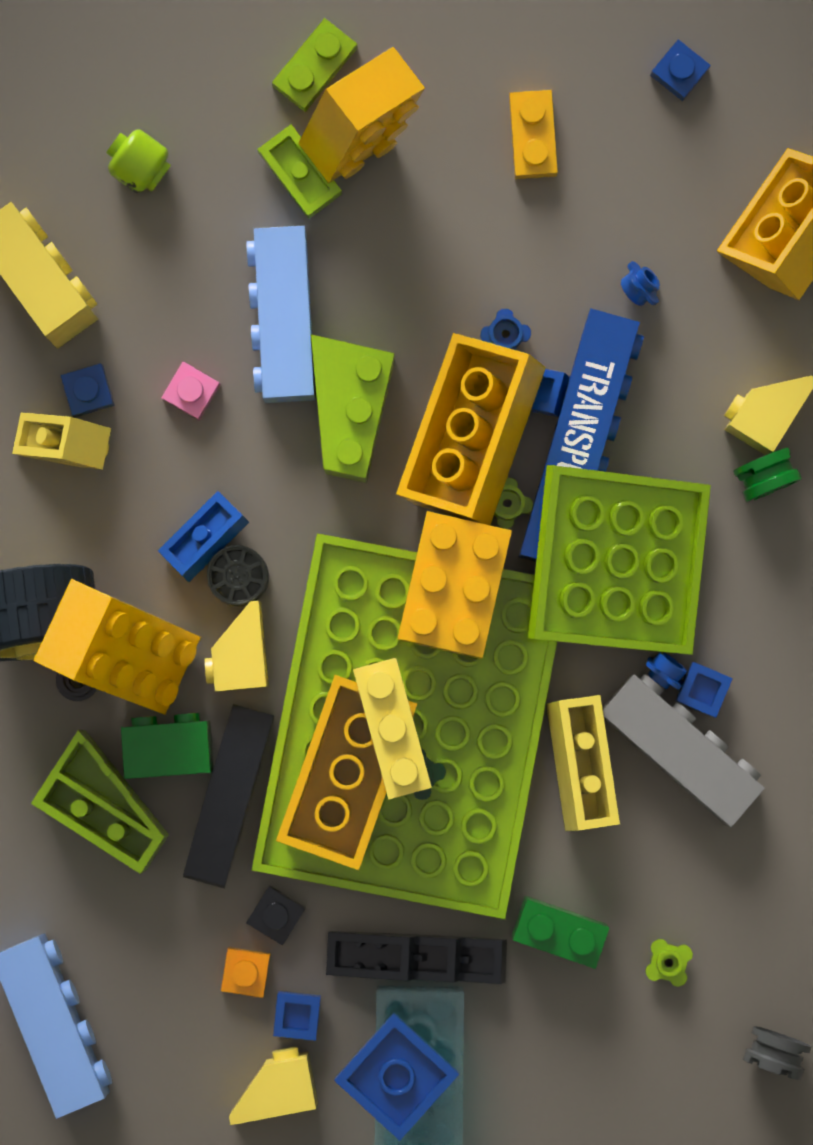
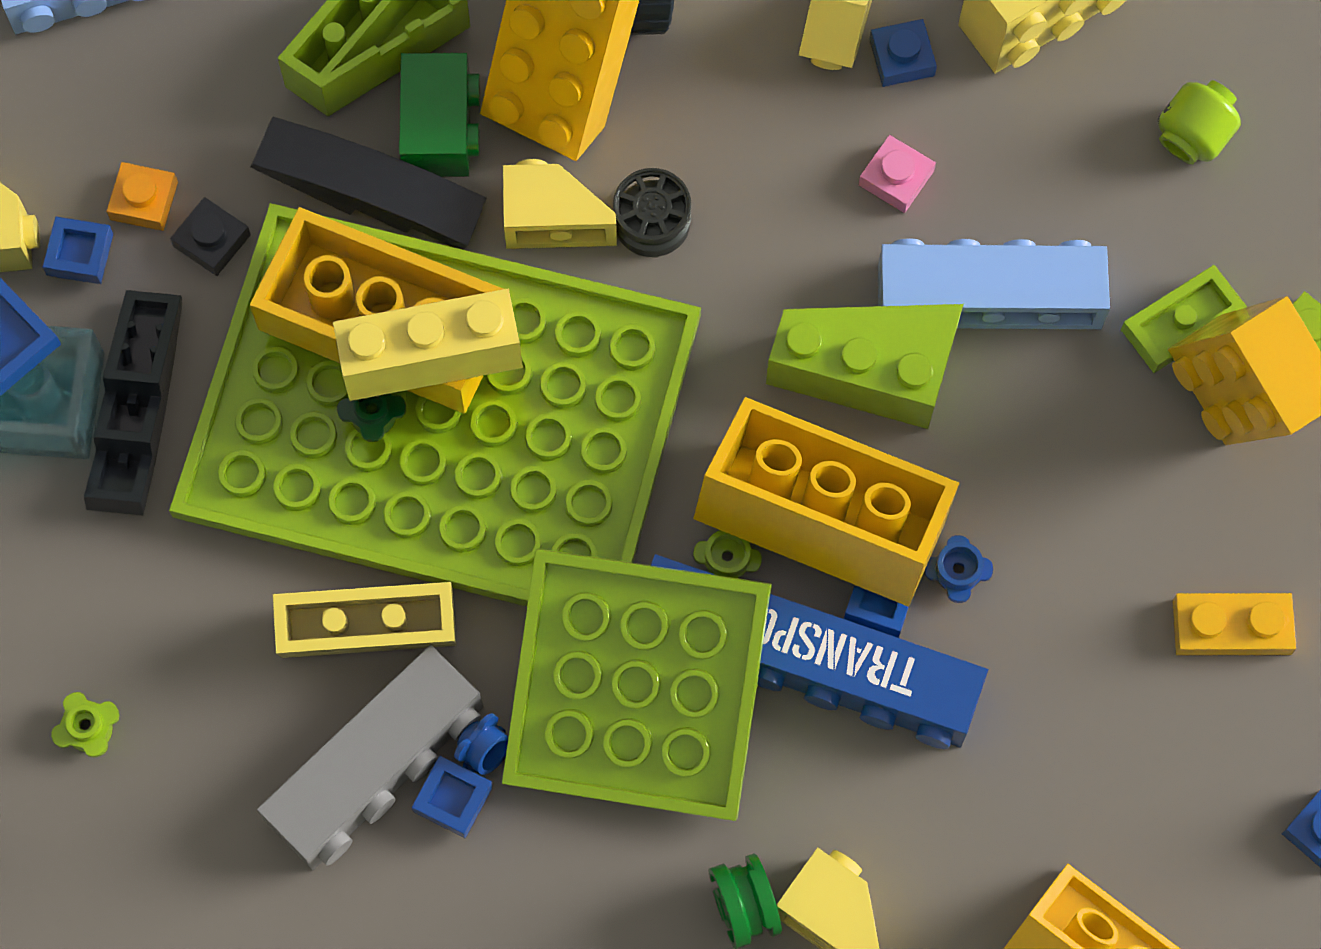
camera: 90 degrees right, 15 degrees down
(203, 536) = (707, 172): blue plate -> none
(454, 585) = (616, 462): yellow brick -> none
(560, 932) = (143, 579): green brick -> none
(640, 285) = (1020, 749): blue plate -> none

